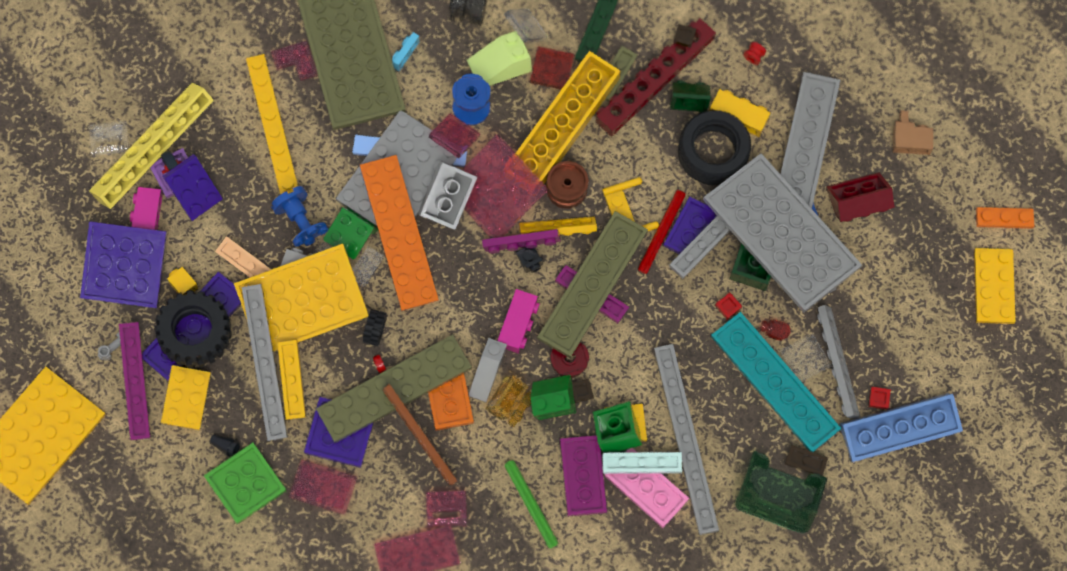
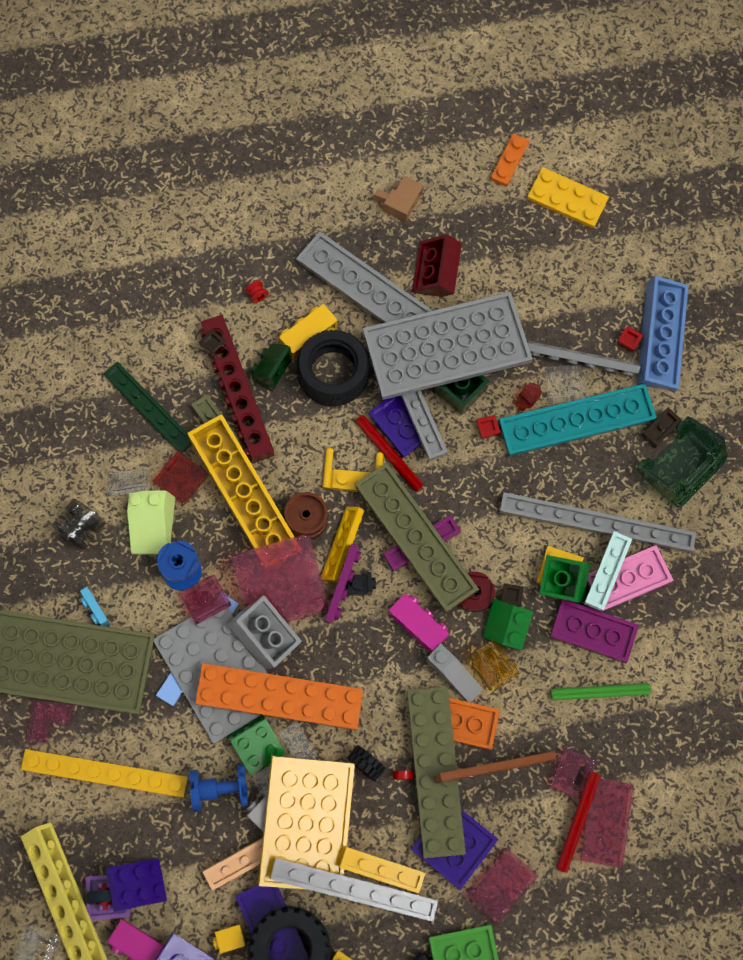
camera: 65 degrees left, 0 degrees up
(407, 527) = (578, 822): none -> red axle

